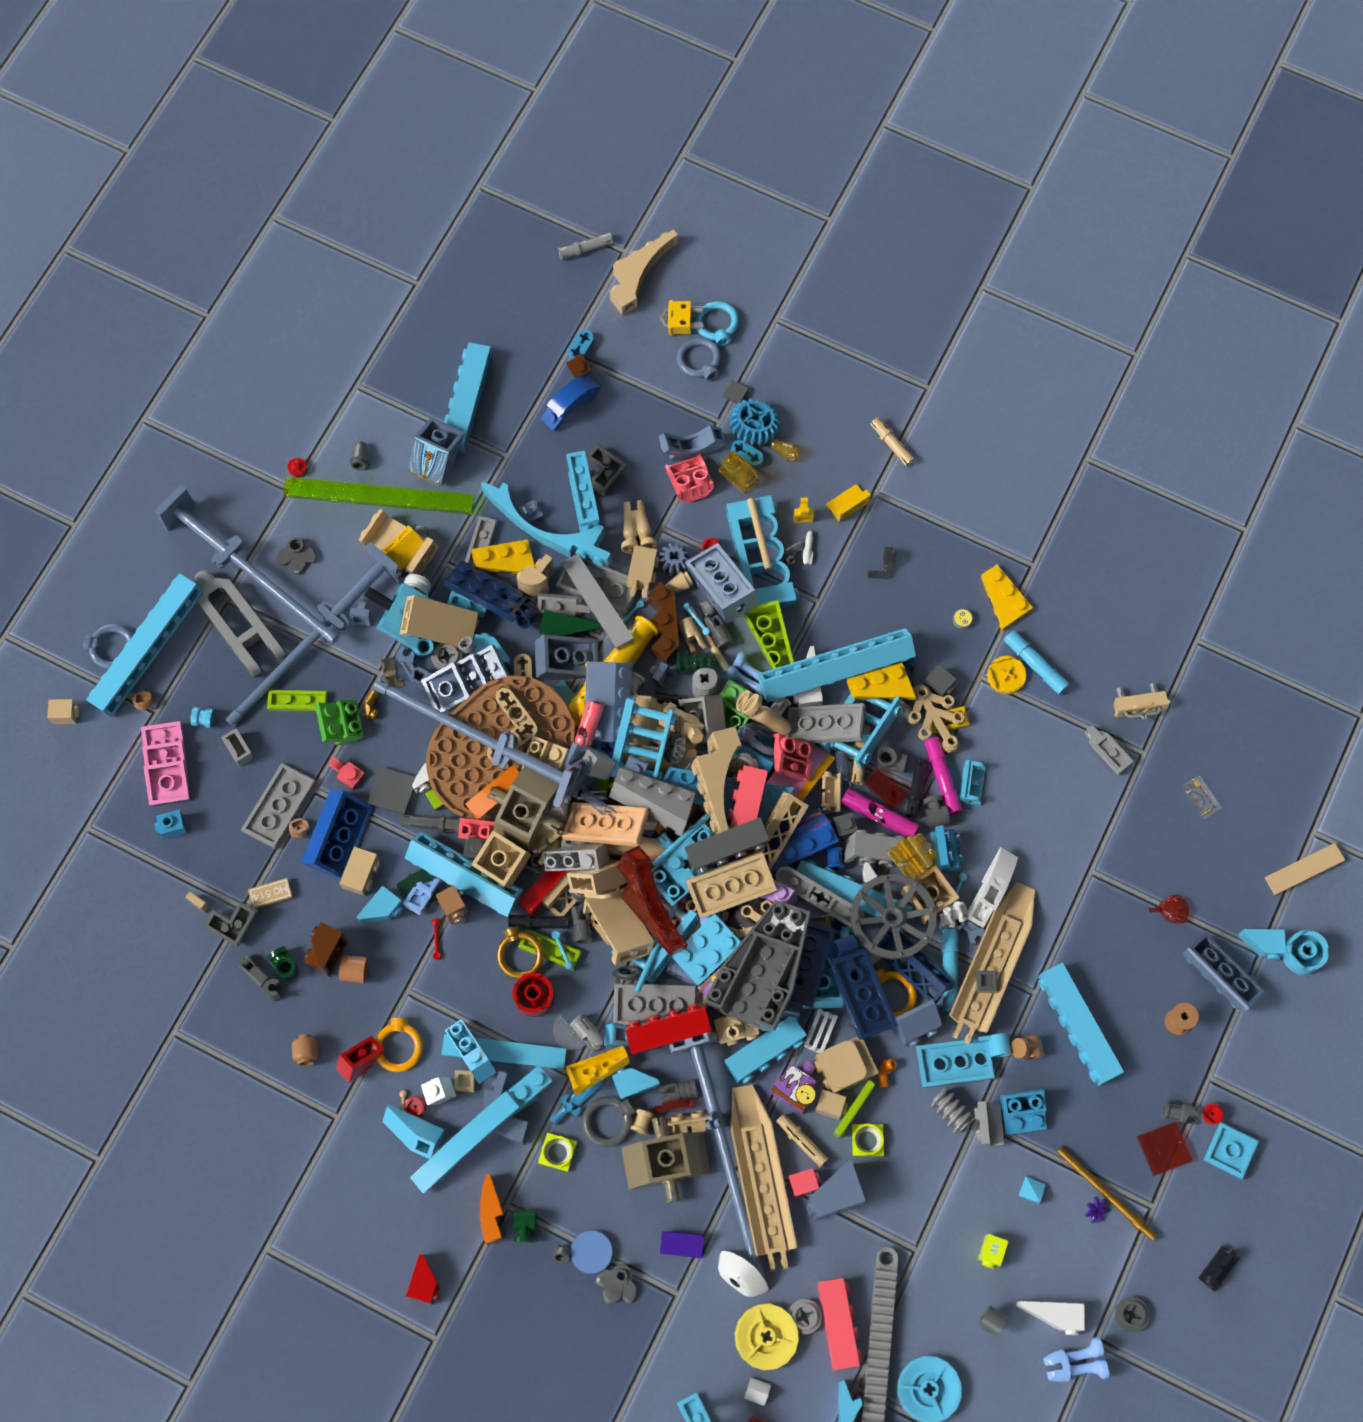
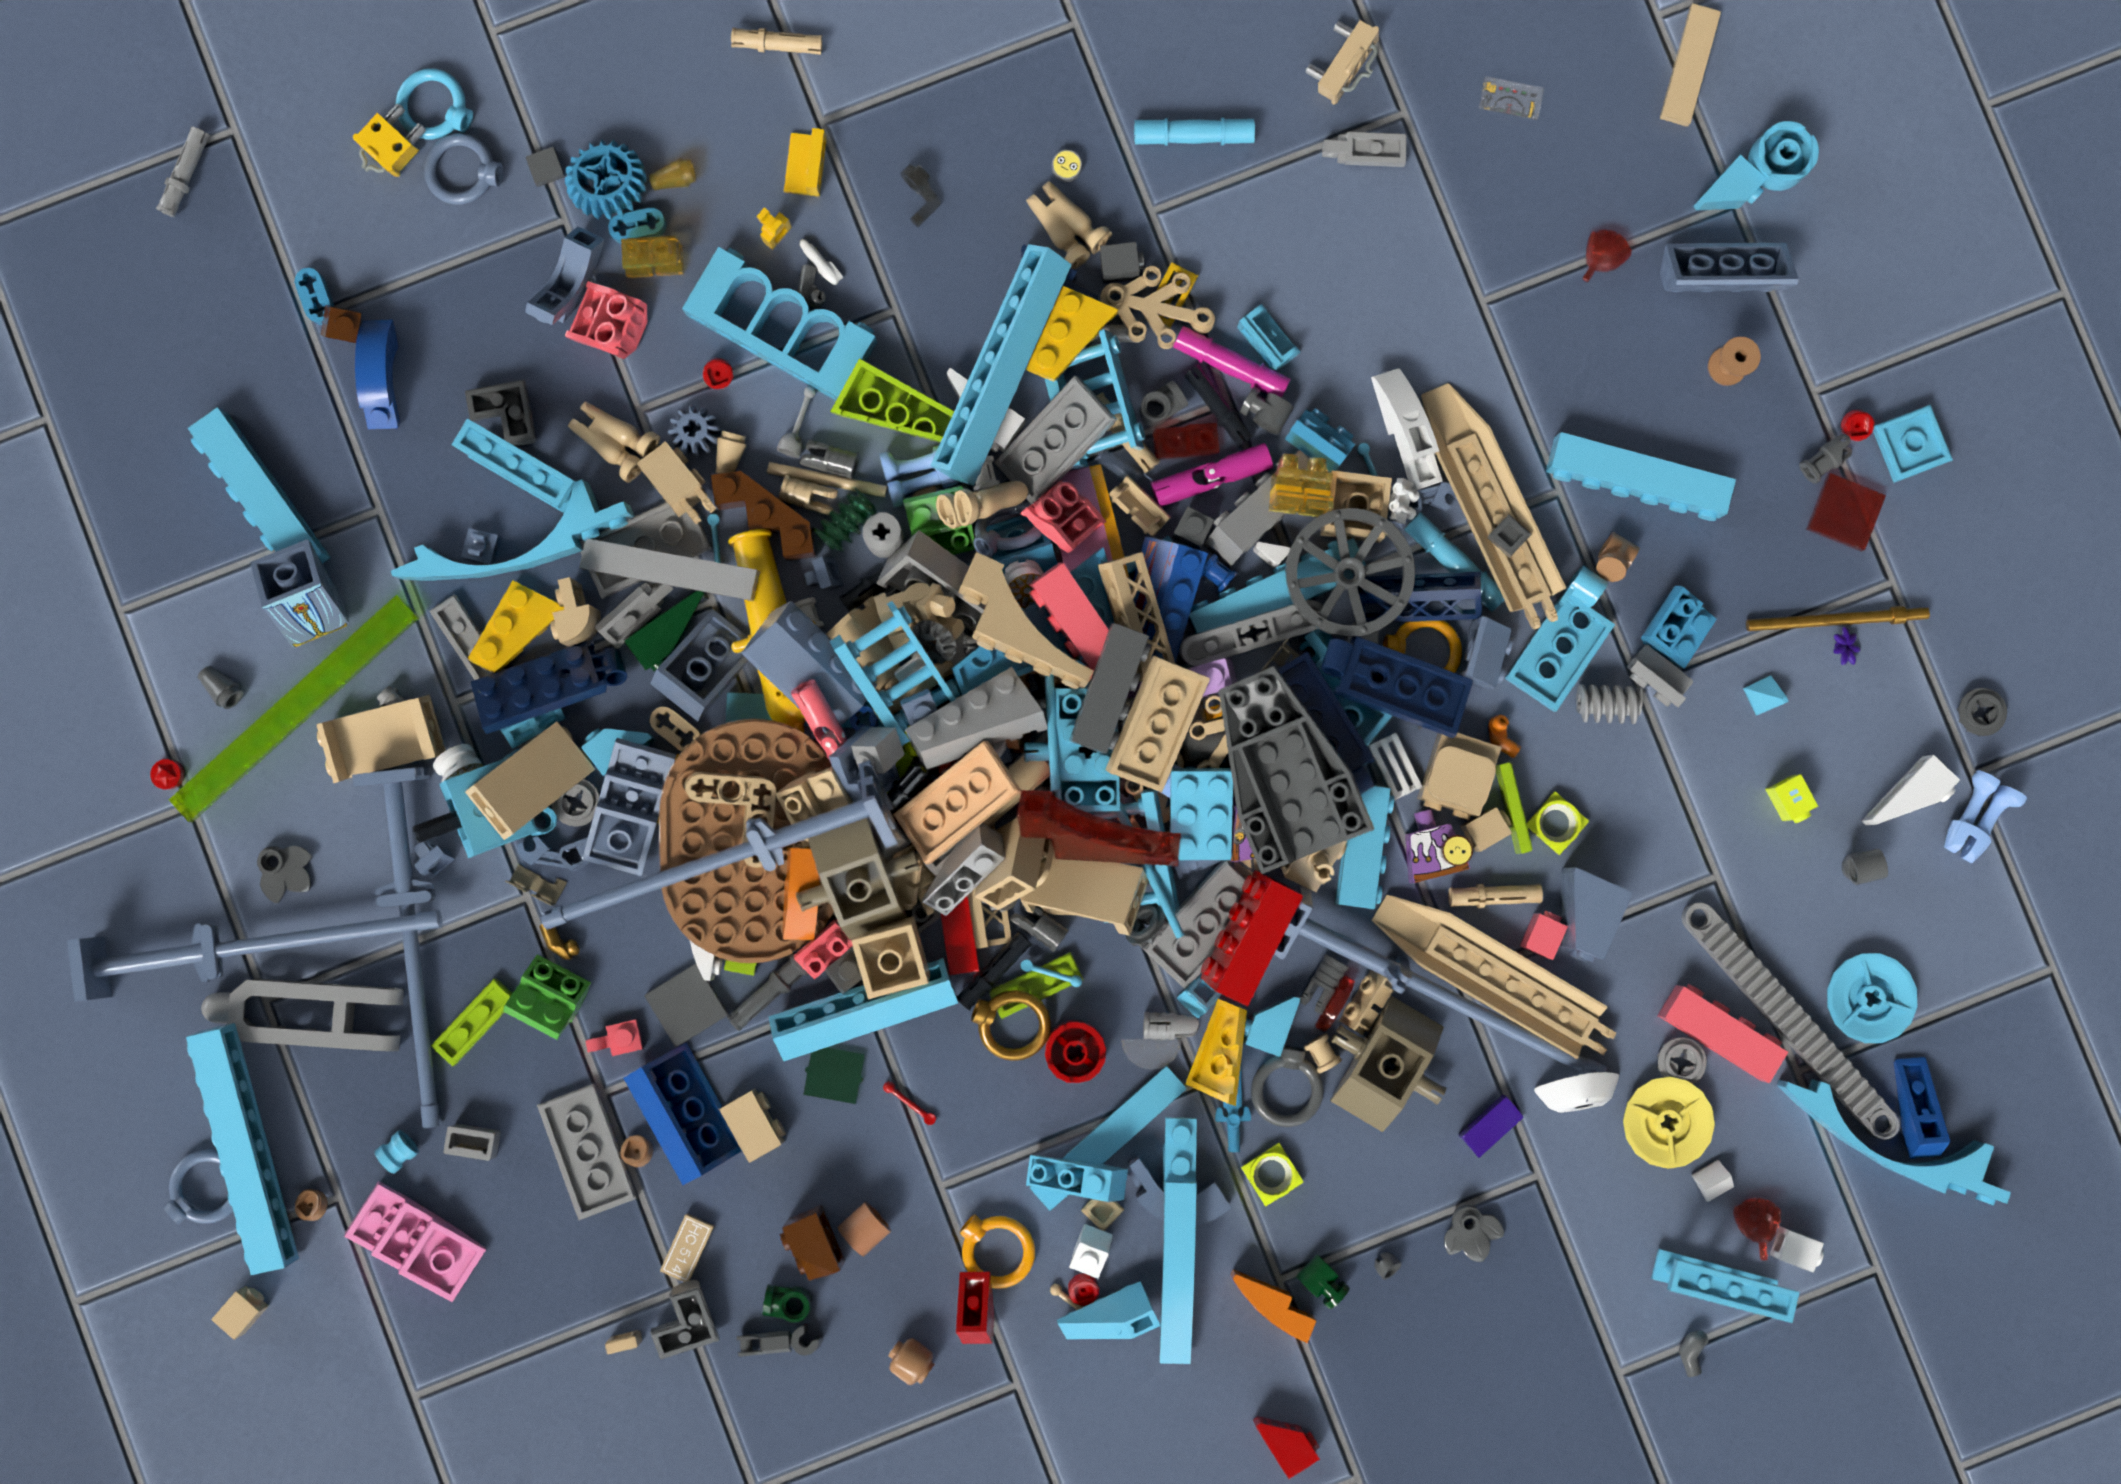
camera: 55 degrees left, 15 degrees up
(170, 824) = (500, 1297): dark azure brick -> none
(381, 907) = (818, 1134): medium azure slope -> none
(403, 547) = (392, 739): yellow panel -> none
(420, 896) = (844, 1079): light blue slope -> none
(452, 905) = (891, 1055): medium nougat brick -> none
(469, 642) = (585, 764): light grey hinge -> none
(591, 1252) = (1413, 1231): medium blue tile -> none
(595, 797) = (920, 793): sand blue piece -> none
(634, 268) = (268, 140): tan arch -> none
(706, 630) = (817, 473): medium azure hinge -> none
(715, 563) = (779, 403): sand blue brick -> none
(759, 534) = (756, 304): tan bar -> none
(936, 640) = (1064, 221): none -> tan piece
(1005, 597) = (1086, 92): yellow wing -> none
(1006, 675) = (1177, 179): yellow tile -> none
(1219, 1268) = (2016, 575): black hinge -> none

